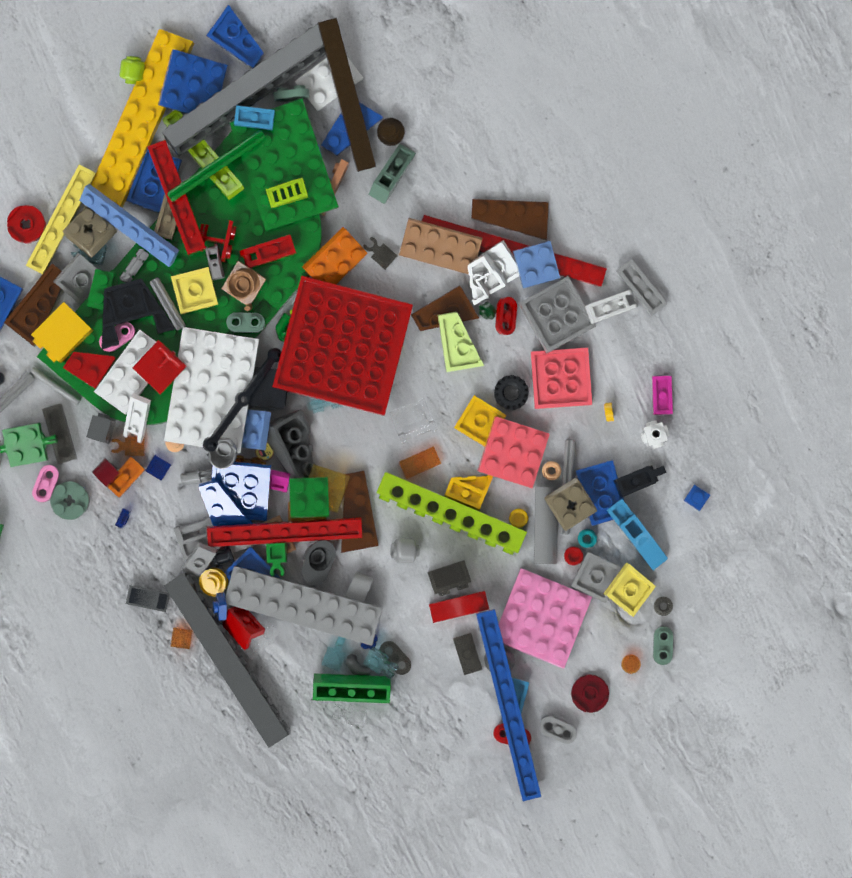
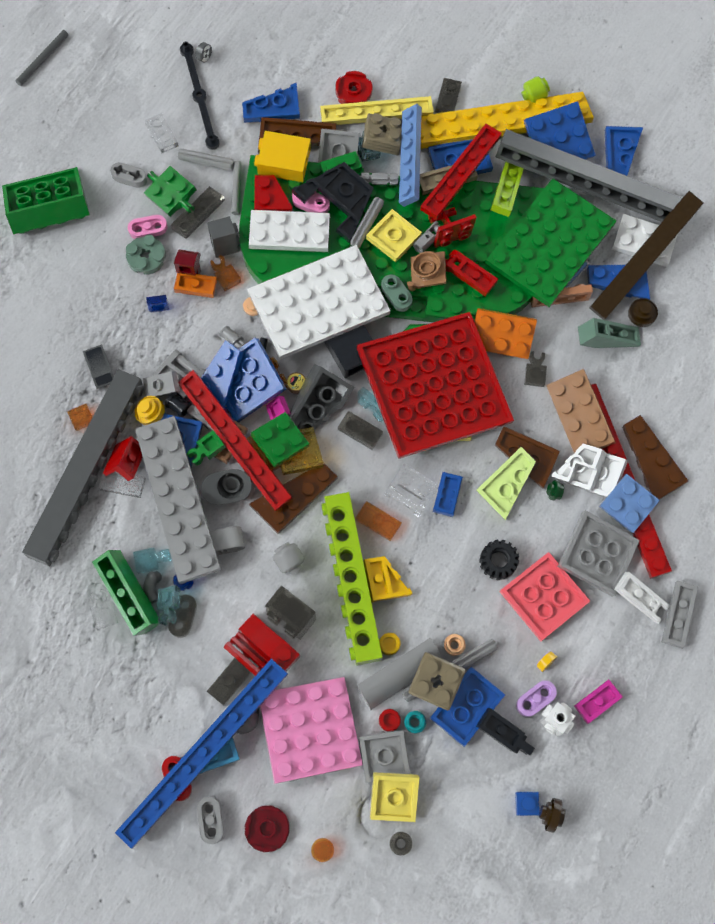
camera: 50 degrees right, 15 degrees down
(86, 147) = (448, 95): none -> clear smoke plate
(137, 416) = (252, 256): white hinge -> none
(158, 467) = (222, 307): clear blue tile -> none
(159, 367) = (308, 243): red plate -> none
(211, 443) = (270, 318): black piece -> none
(216, 165) = (511, 183): green axle -> none
(220, 606) = (129, 428): blue plate -> none
(224, 454) = (269, 337): light grey hair -> none
(254, 117) = (573, 189): dark azure plate -> none
(256, 430) = (309, 359): medium blue plate -> none
(292, 184) = (540, 251): lime slope -> none
(297, 93) = (618, 215): sand green plate -> none
(338, 427) = (360, 430): none -> clear smoke plate
(435, 395) = (447, 494): none -> blue plate
(454, 625) = (249, 651): none -> red tile
(477, 420) = (453, 549): yellow plate -> none
(506, 316) = (562, 510): red plate -> none
(513, 452) = (447, 597): coral plate -> none
(630, 438) = (535, 698): none -> lavender plate
(637, 534) = (452, 768): dark azure slope -> none
(662, 645) = (362, 871): sand green plate -> none
(716, 486) = (552, 815): none -> dark brown plate

